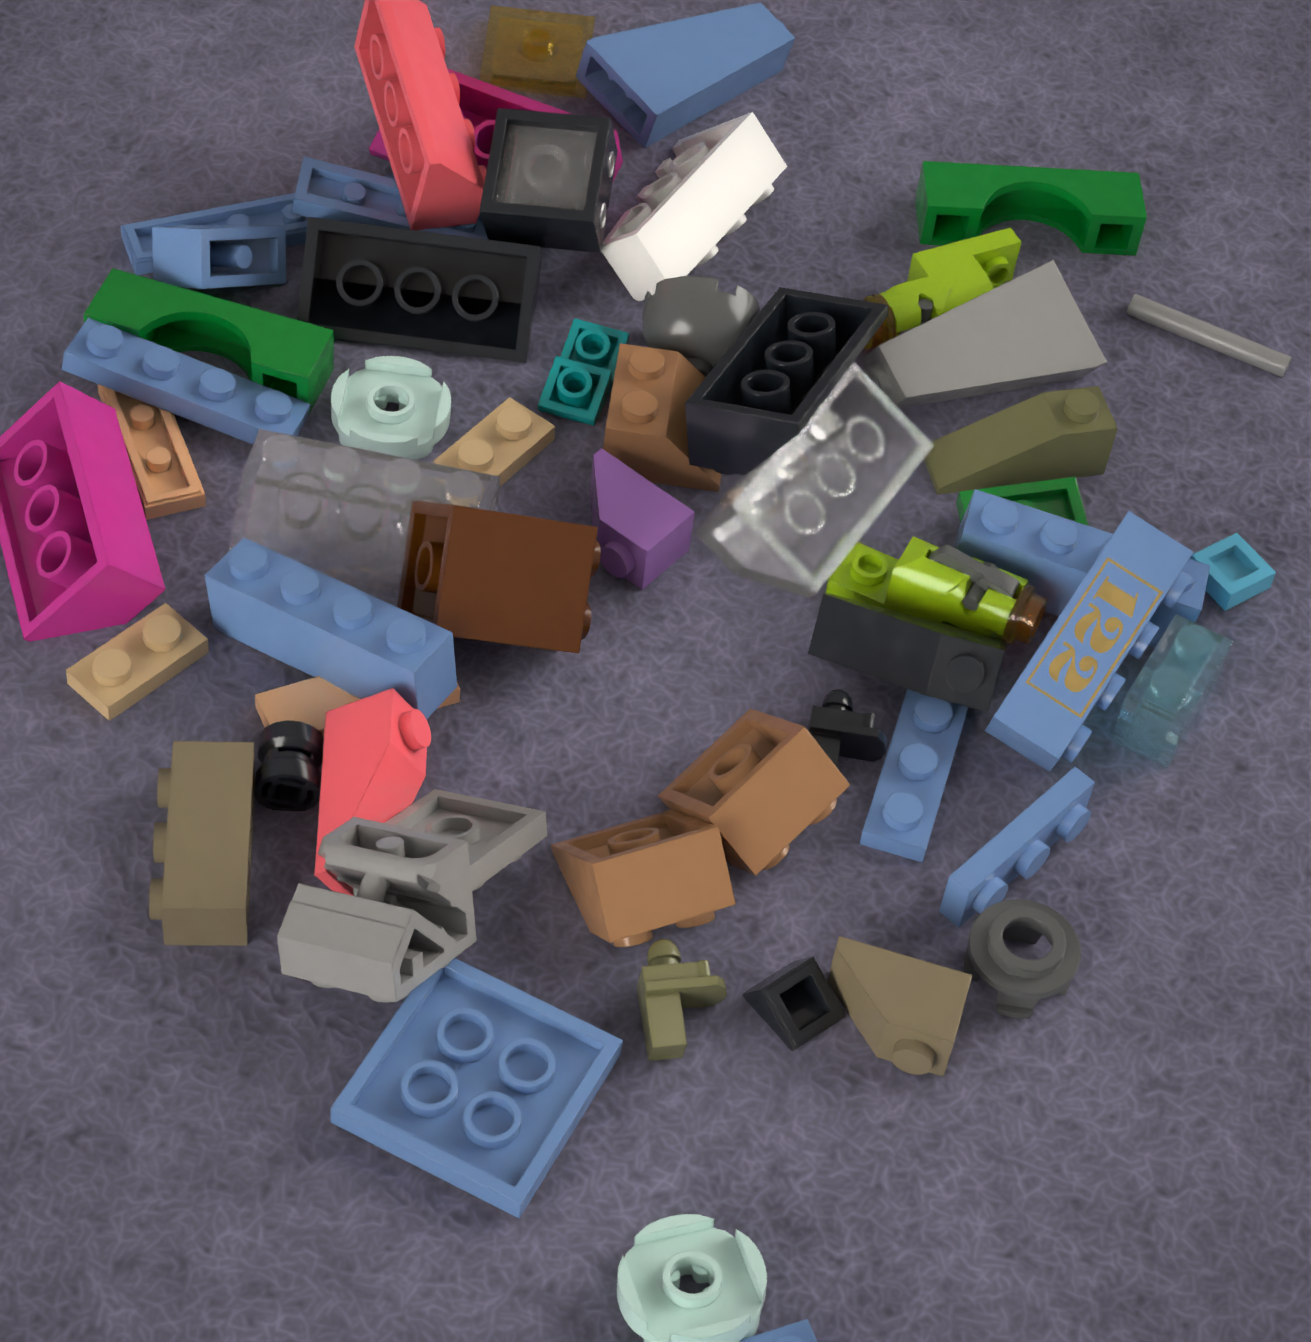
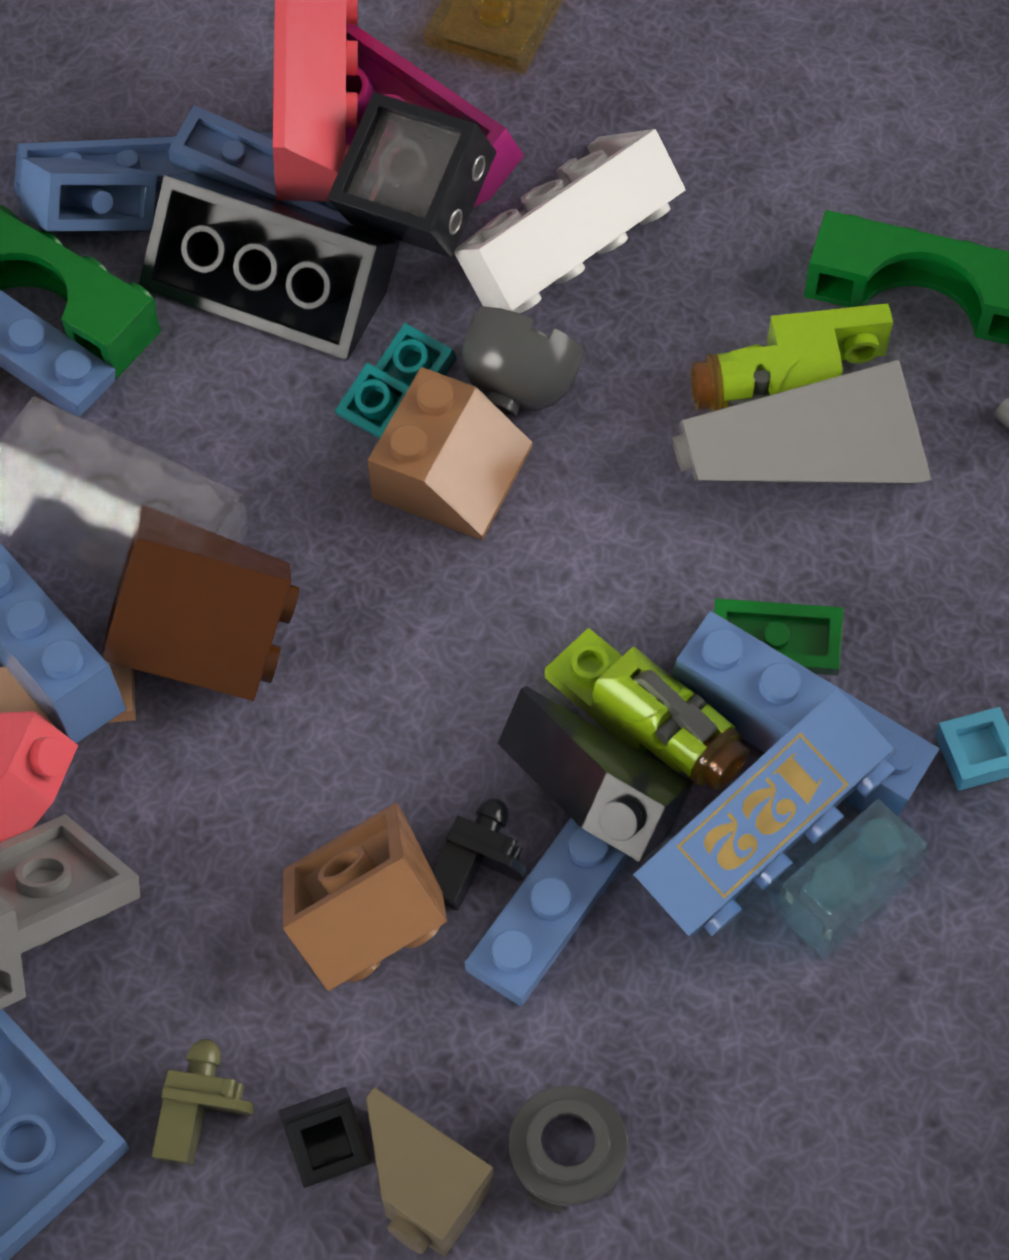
camera: 25 degrees right, 10 degrees up
(403, 433) = (196, 416): light aqua plate -> none
(500, 442) = (275, 451): tan plate -> none
(636, 521) = (370, 565): medium lavender slope -> none
(646, 876) = (220, 962): medium nougat slope -> none
(682, 68) = (627, 59): medium blue slope -> none
(776, 377) = (560, 433): black slope -> none
(819, 492) = (570, 561): clear slope -> none
(1018, 848) = (615, 1023): medium blue plate -> none
(1029, 442) = (812, 554): olive slope -> none

